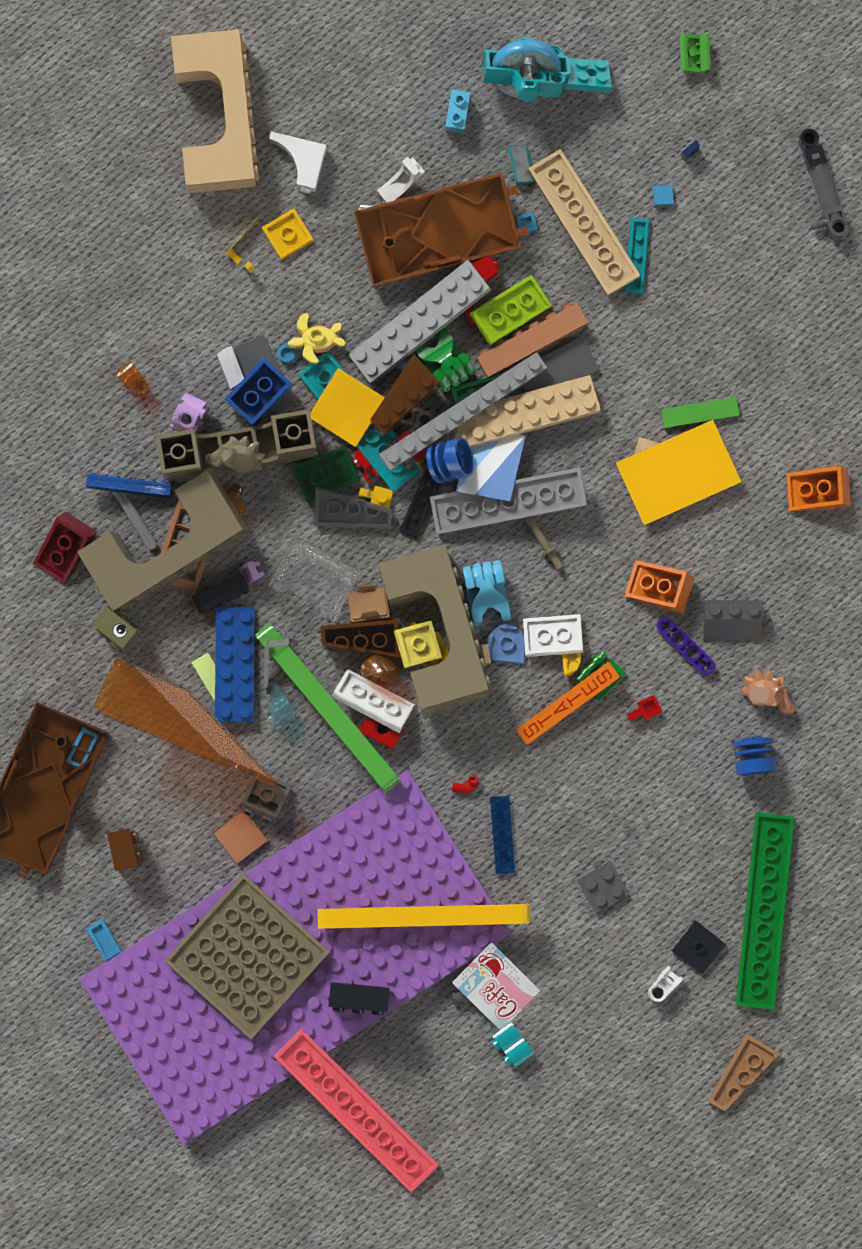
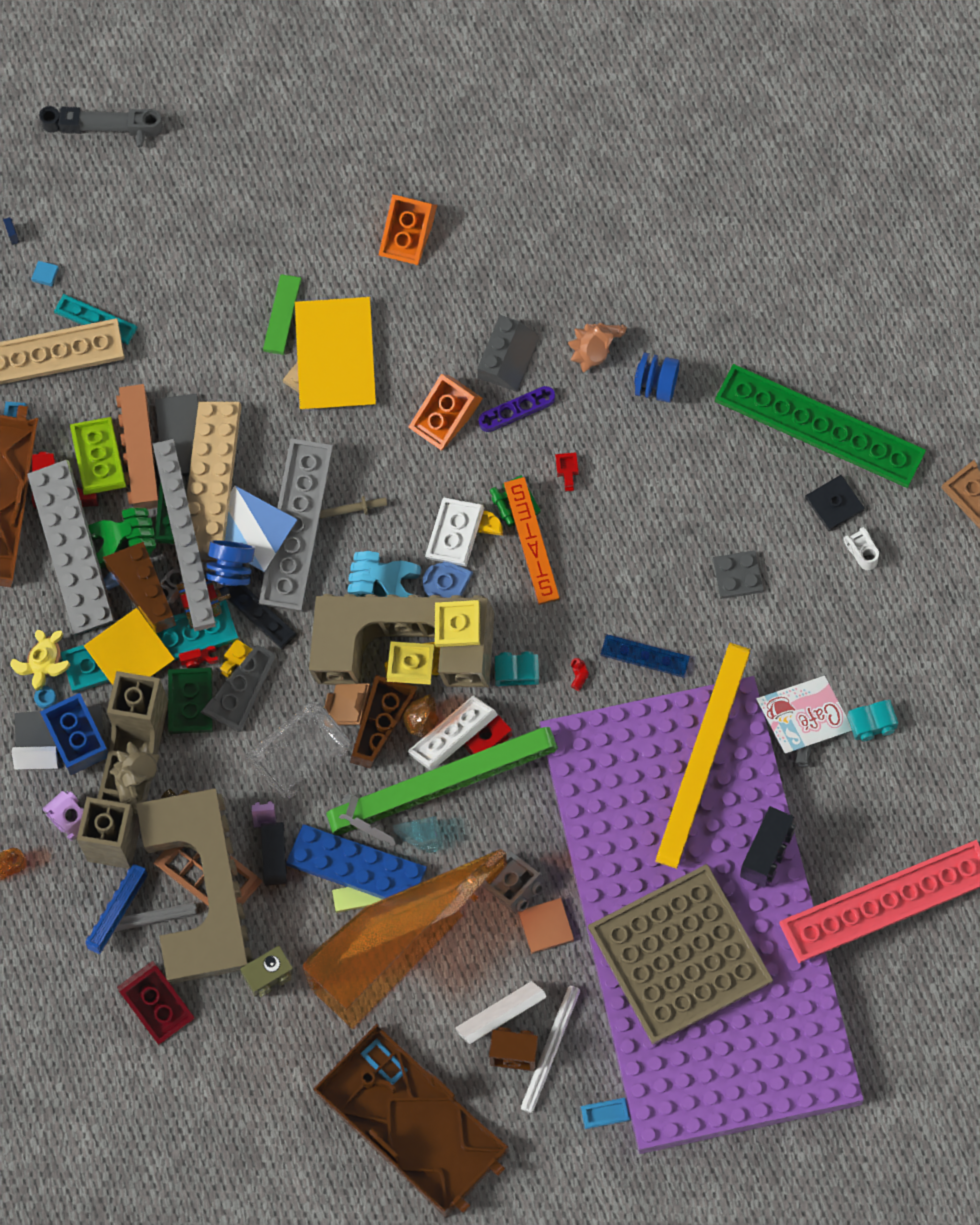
camera: 65 degrees left, 15 degrees down
(140, 877) = (550, 1049): none -> white axle
(152, 827) = (500, 1012): none -> white tile
(450, 733) = (516, 669): none -> teal brick
(455, 673) = (457, 623): none -> light yellow plate

